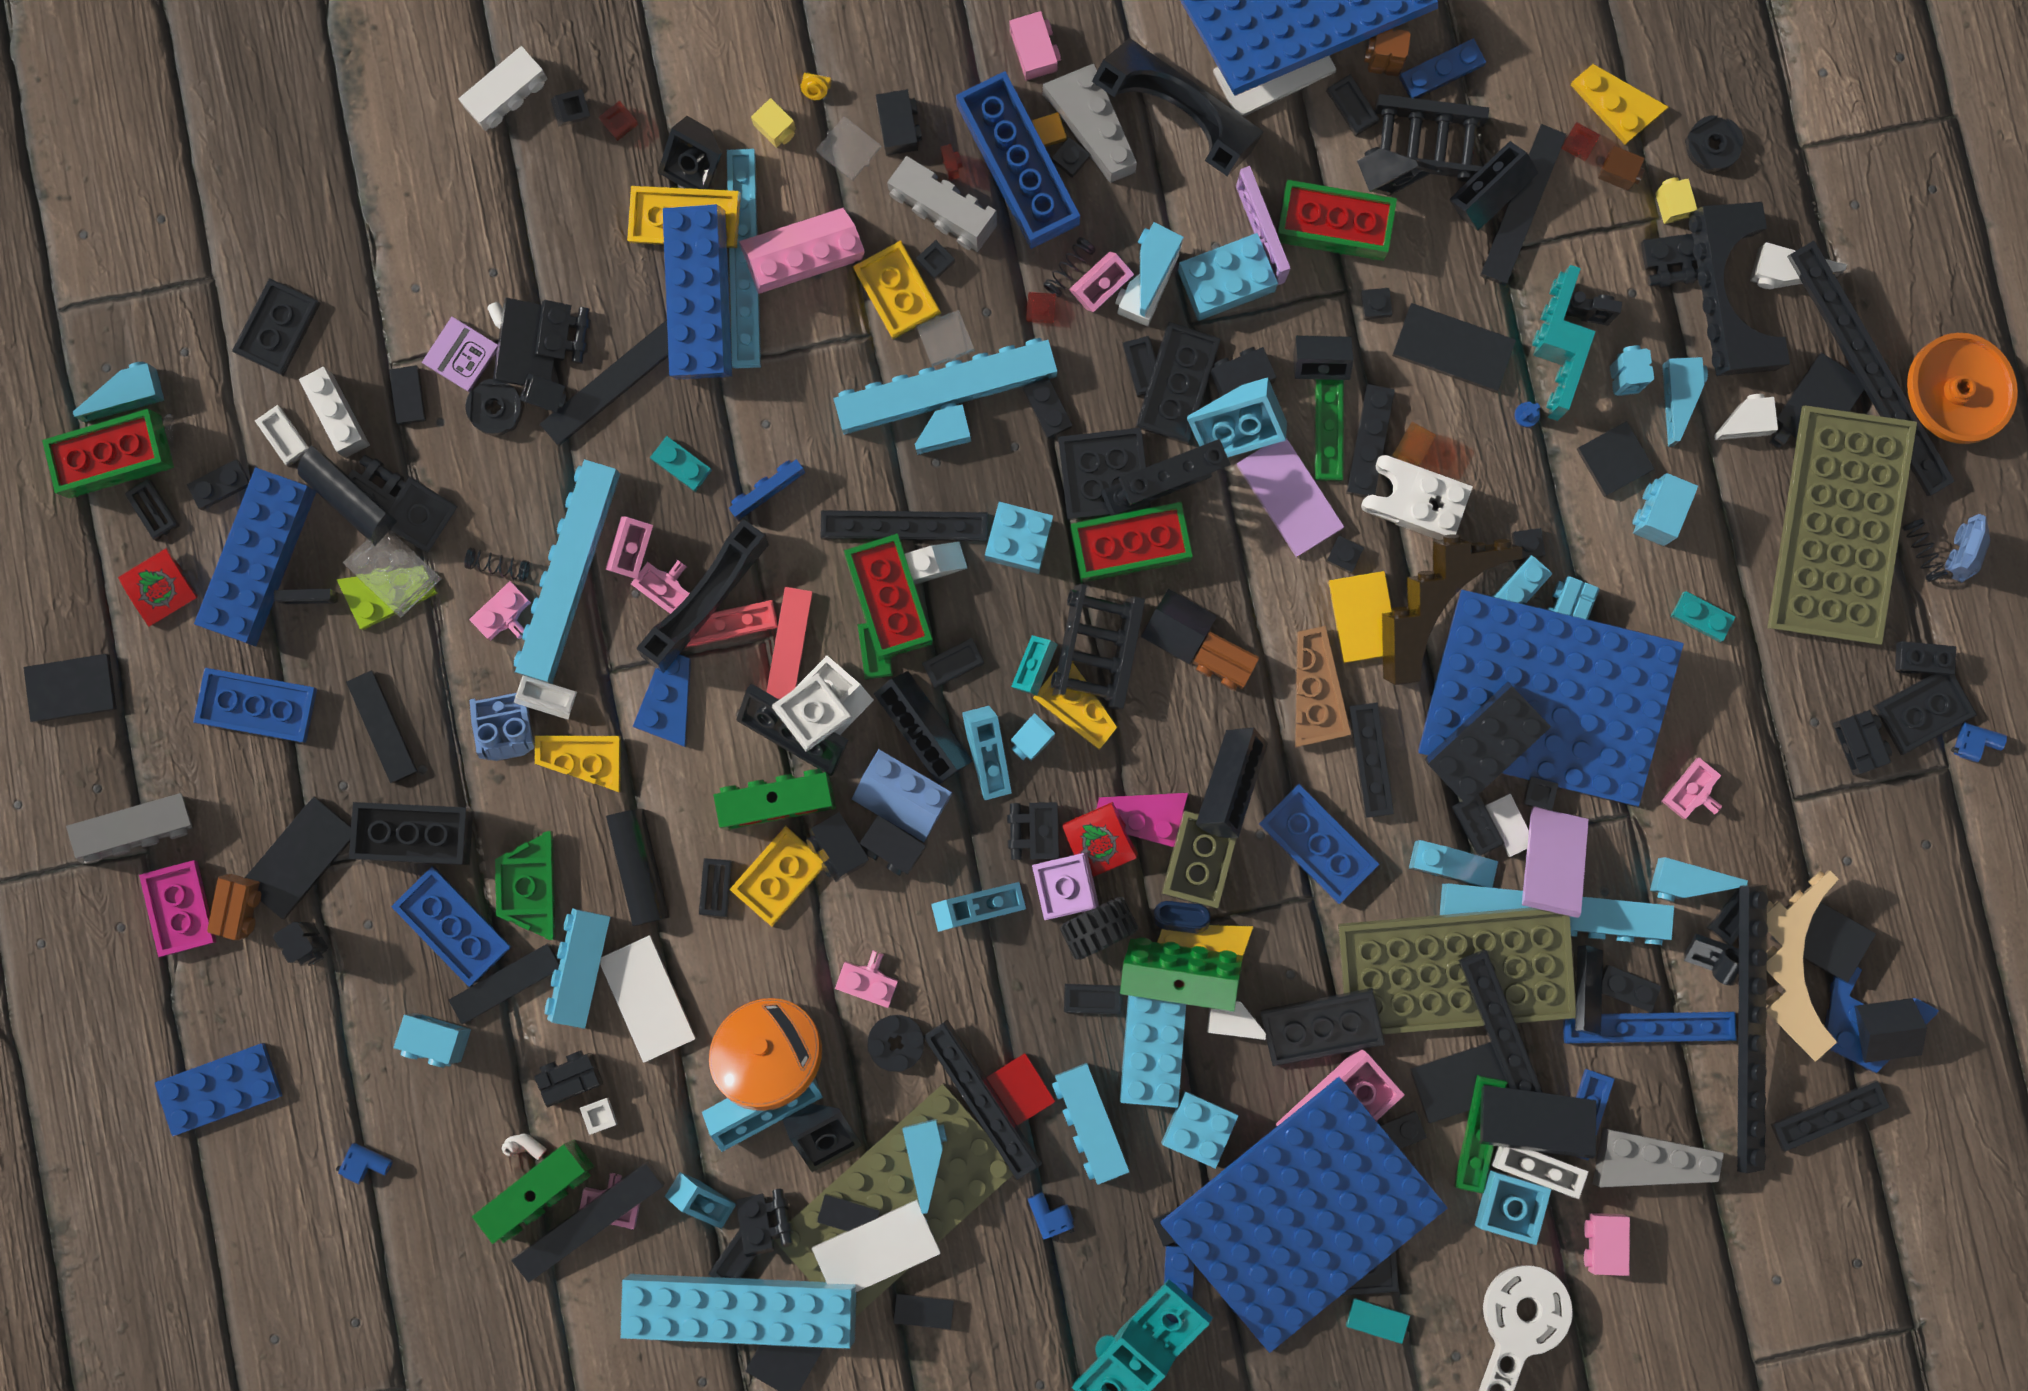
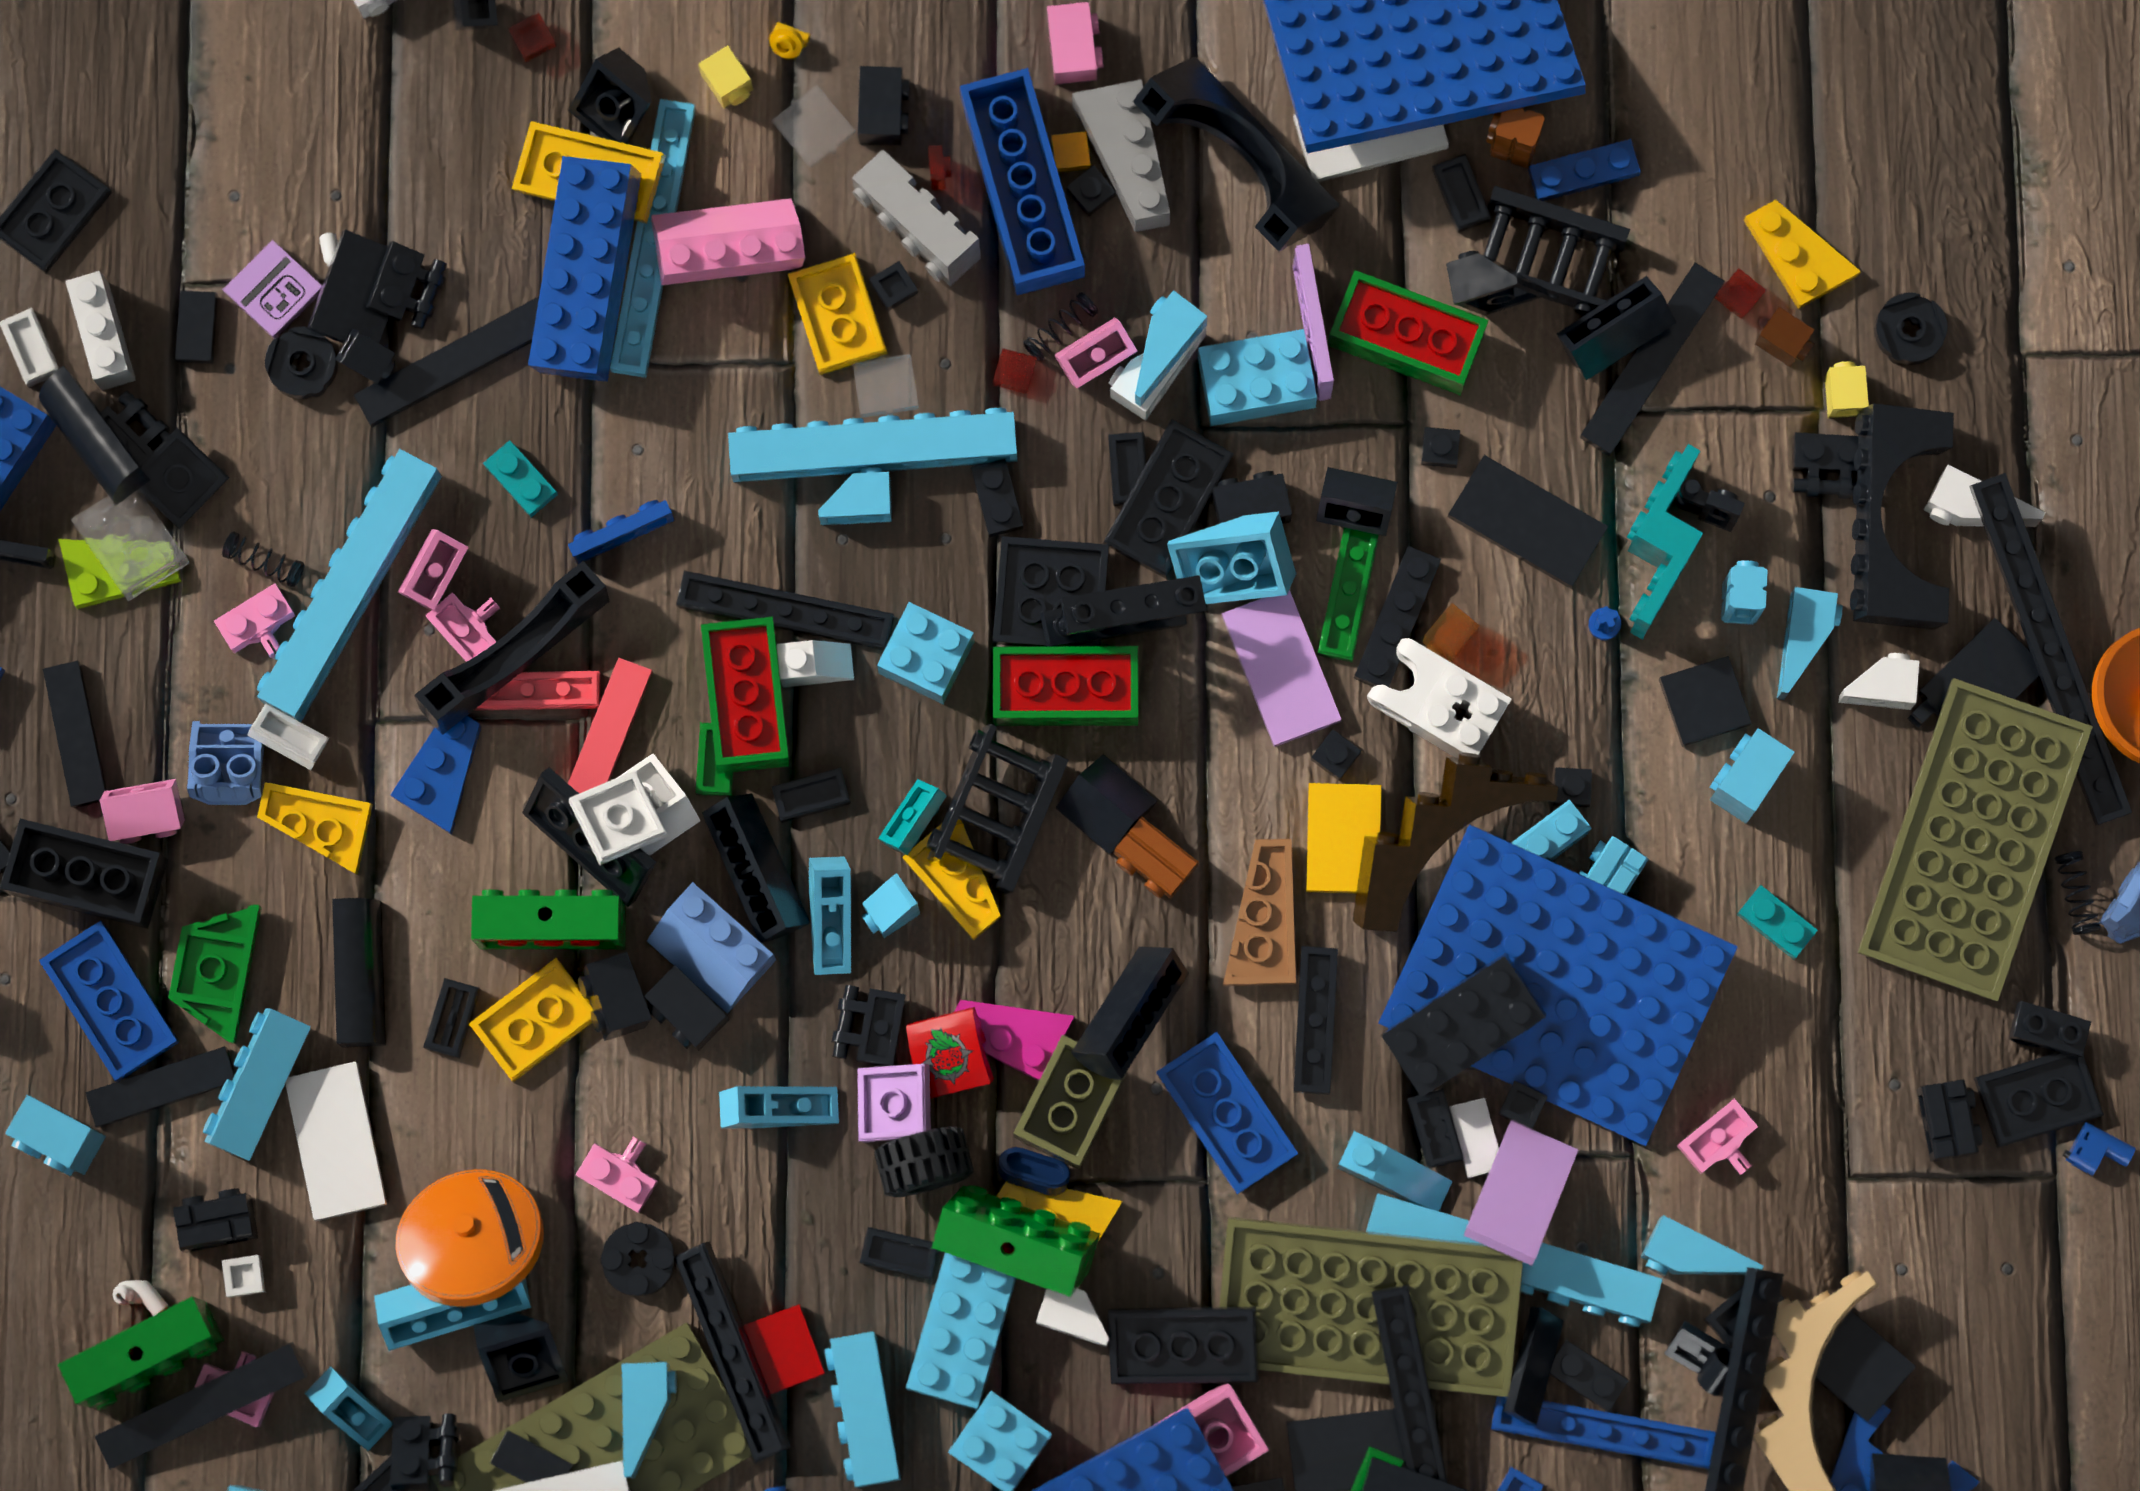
camera: 10 degrees right, 5 degrees down
(445, 776) = (142, 811): none -> bright pink brick

